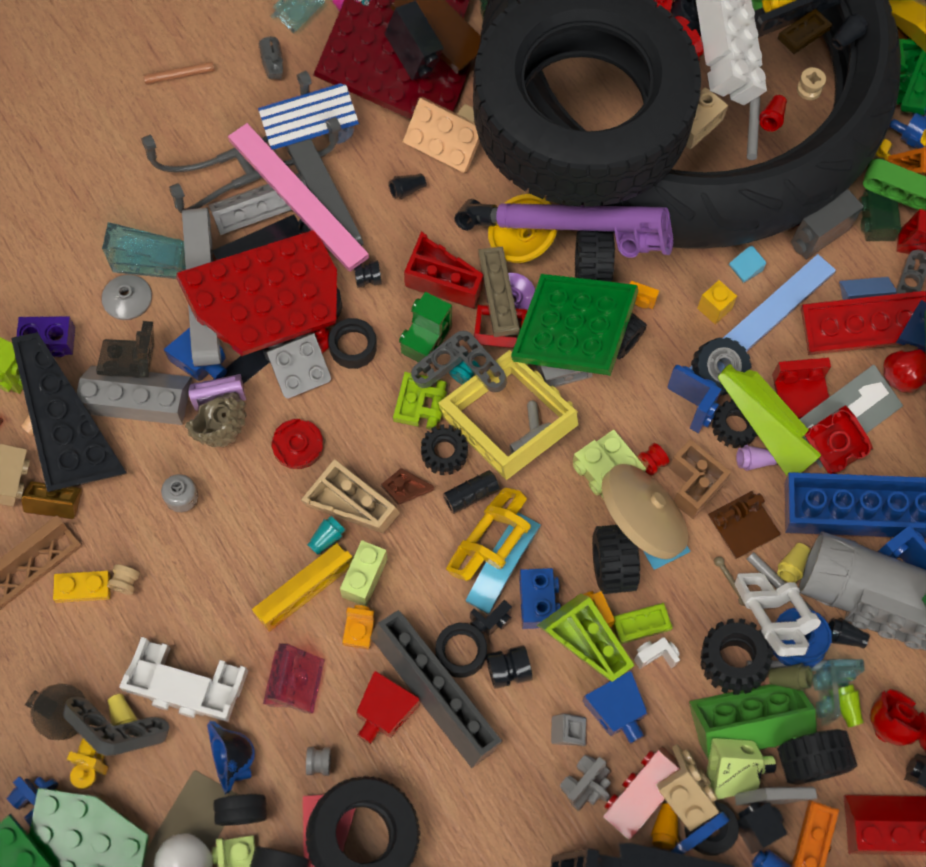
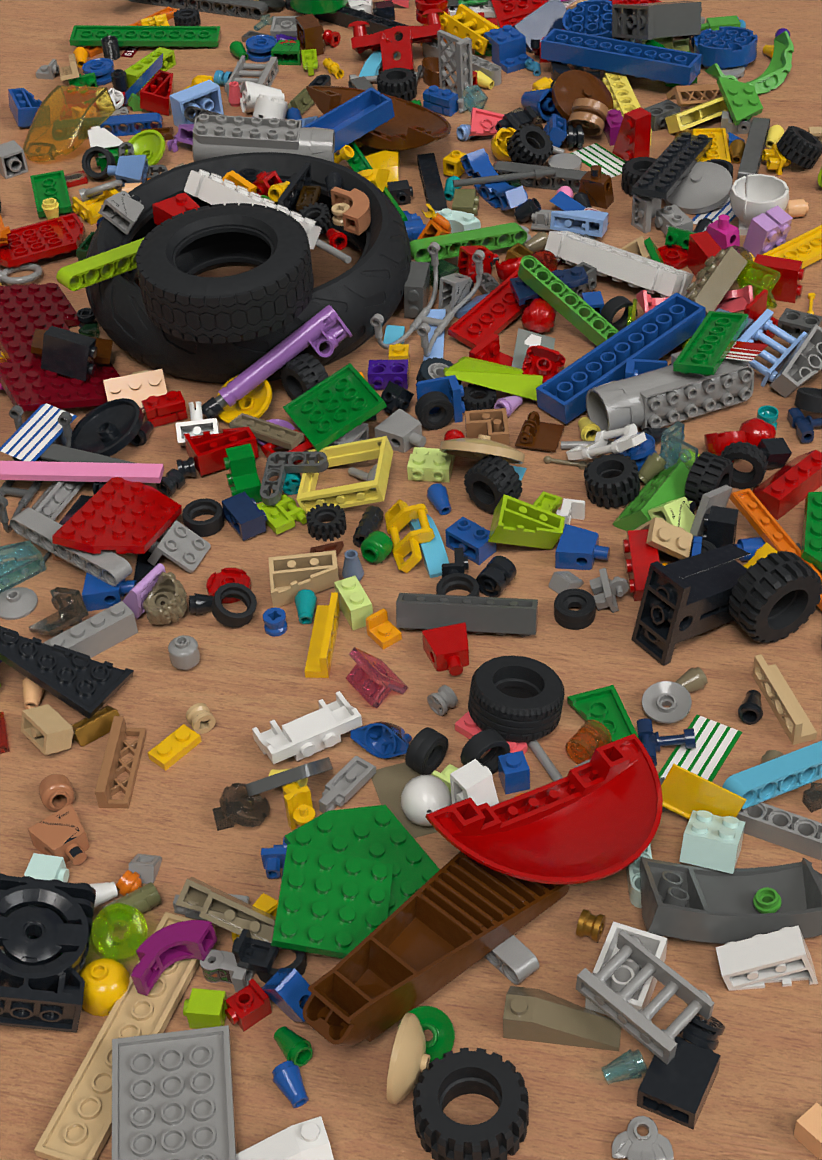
camera: 40 degrees left, 25 degrees down
(157, 769) = (346, 783): none -> light grey hinge
(248, 474) = (229, 618): none -> black tyre
(252, 448) = (200, 603): none -> black cone
(282, 532) = (275, 621): none -> blue wheel
(374, 159) = (108, 427): none -> black dish
(381, 377) = (244, 515): none -> dark blue brick
(395, 267) = (187, 467): none -> black wheel
(407, 535) = (352, 565): none -> sand blue cone
(448, 229) = (196, 425): none -> white brick
(449, 526) = (376, 547): none -> green head
(450, 174) = (165, 408): none -> red brick
(537, 789) = (574, 599): none -> black tyre
(566, 518) = (439, 498): none -> blue cone
(620, 399) = (402, 431): none -> light grey torso
(657, 353) = (396, 397): none -> black brick
(673, 404) = (439, 419): none -> black tyre
(692, 309) = (383, 371): none -> dark purple brick
(746, 307) = (422, 321): none -> light grey bar
(782, 55) = (318, 213): none -> black tyre
(826, 102) = (358, 216): none -> nougat arch
(864, 258) = (453, 290): none -> light grey torso
(877, 768) = (751, 454): none -> black tyre

